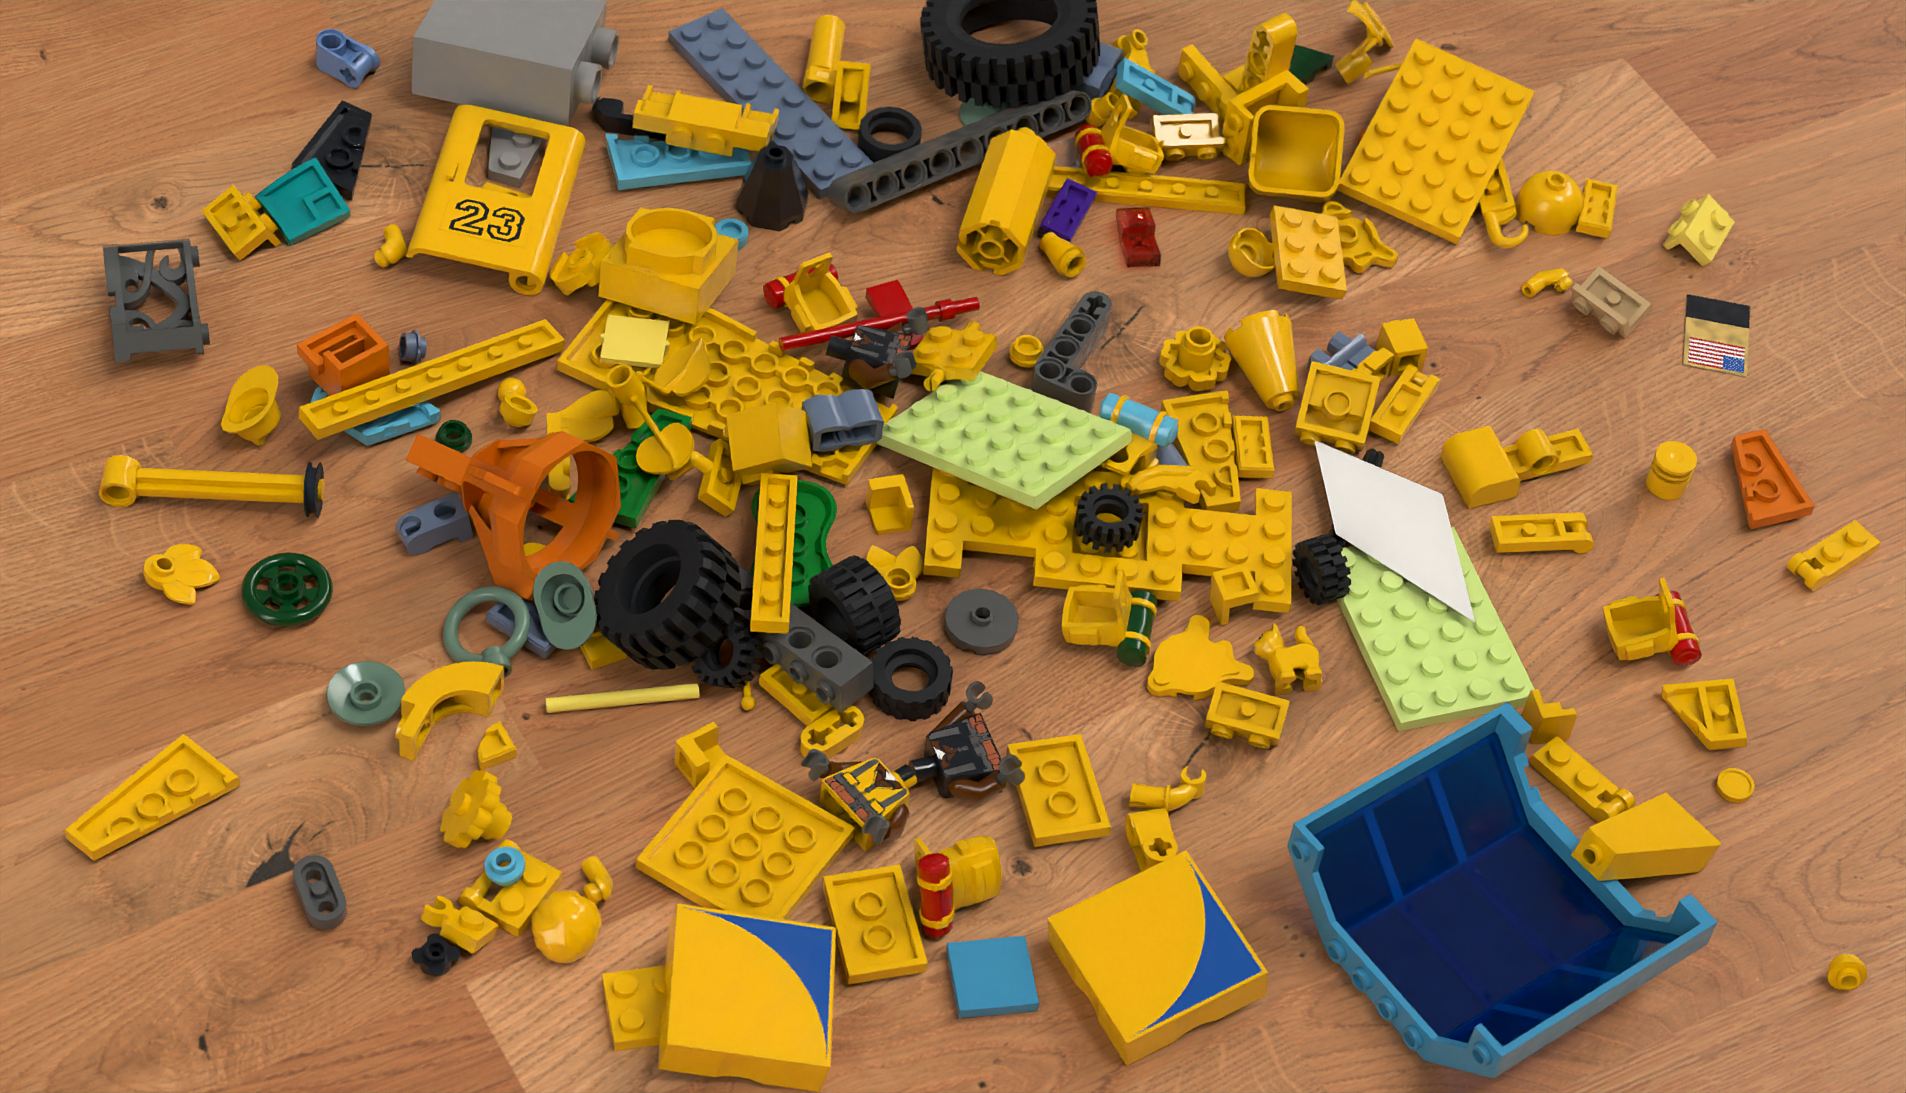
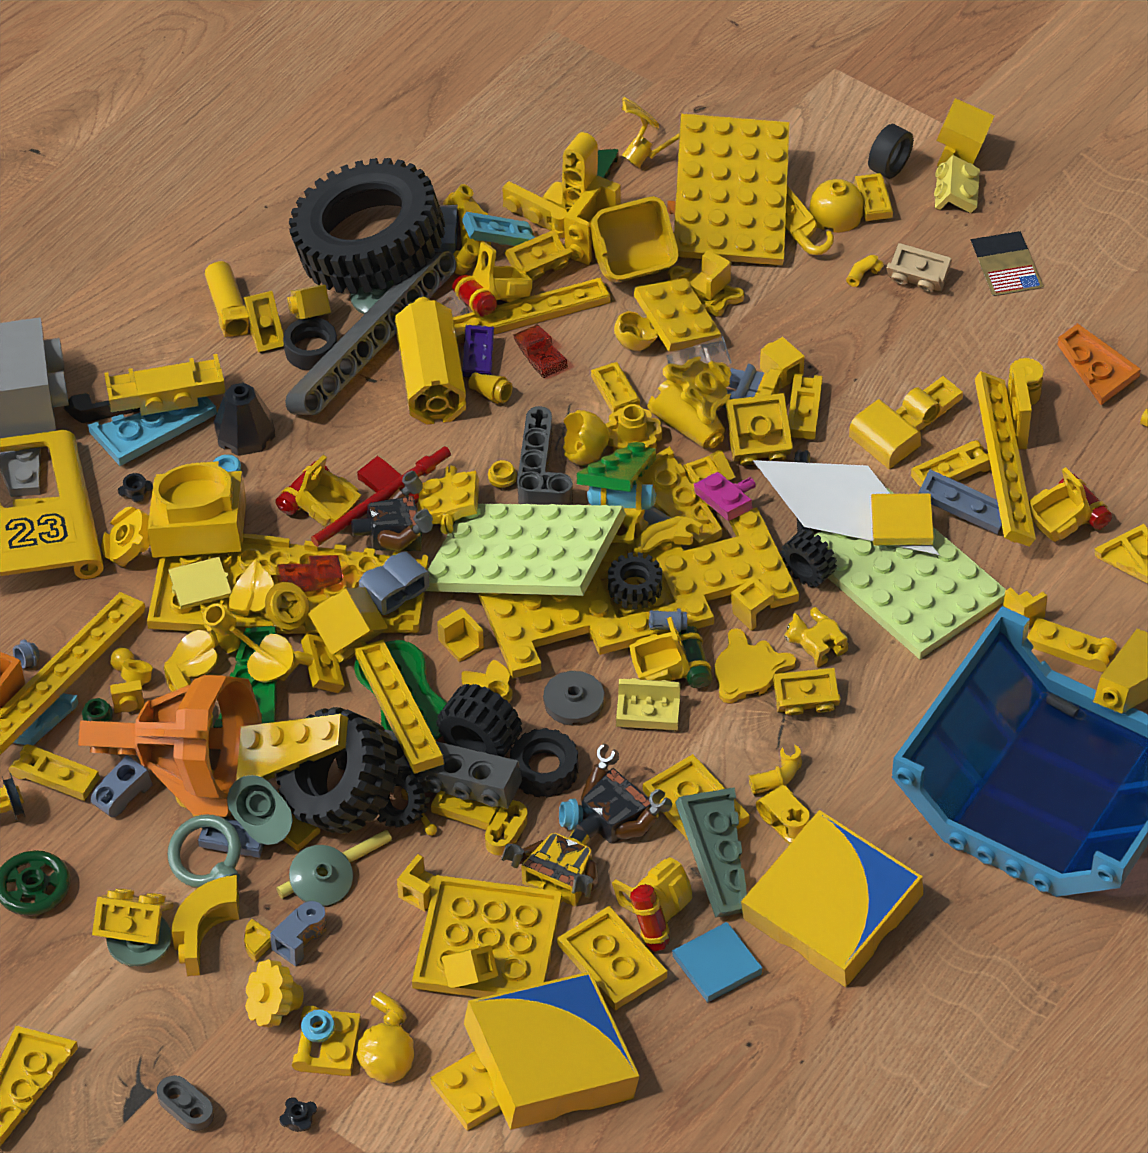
camera: 15 degrees left, 0 degrees up
(366, 663) = (129, 917): none -> yellow bracket
(374, 482) = (54, 772): none -> yellow plate
(463, 926) = (308, 1084): yellow plate -> none
(491, 427) = (127, 696): none -> yellow plate
(542, 754) = (298, 930): none -> sand blue leg
(595, 721) = (322, 889): none -> sand green dish
(619, 215) = (135, 487): none -> black plate
(626, 543) = (286, 744): none -> yellow wing
(705, 868) = (470, 966): none -> yellow panel
(720, 387) = (297, 612): none -> yellow gear
(747, 74) = (177, 337): sand blue plate -> none
(762, 380) = (317, 574): none -> clear red slope
(908, 92) = (309, 302): none -> yellow slope
(909, 746) = (570, 814): none -> medium azure plate
(1054, 834) = (713, 837): none -> sand green wing
(1059, 660) = (648, 704): none -> light yellow bracket
(1135, 577) = (658, 620): none -> sand blue pin
(1136, 345) = (584, 437): none -> yellow hair
(1151, 390) = (619, 469): none -> green wing
(1200, 303) = (614, 386): none -> yellow plate
(1260, 465) = (725, 496): none -> dark pink plate
(1277, 434) = (722, 464): none -> yellow tile
(1292, 334) = (702, 385): none -> yellow tile
(1312, 308) = (712, 350): none -> clear slope
(1371, 226) = (714, 275): none -> yellow panel
(1450, 566) = (902, 519): none -> yellow tile
(1533, 574) = (962, 501): none -> sand blue plate
(1536, 845) = (1062, 705): none -> dark grey piece
(1603, 546) = (1004, 459): none -> yellow plate
(1639, 164) = (890, 151): none -> black tyre
(1648, 496) = (1020, 406): none -> yellow tile
(1733, 173) = (963, 131): none -> yellow plate

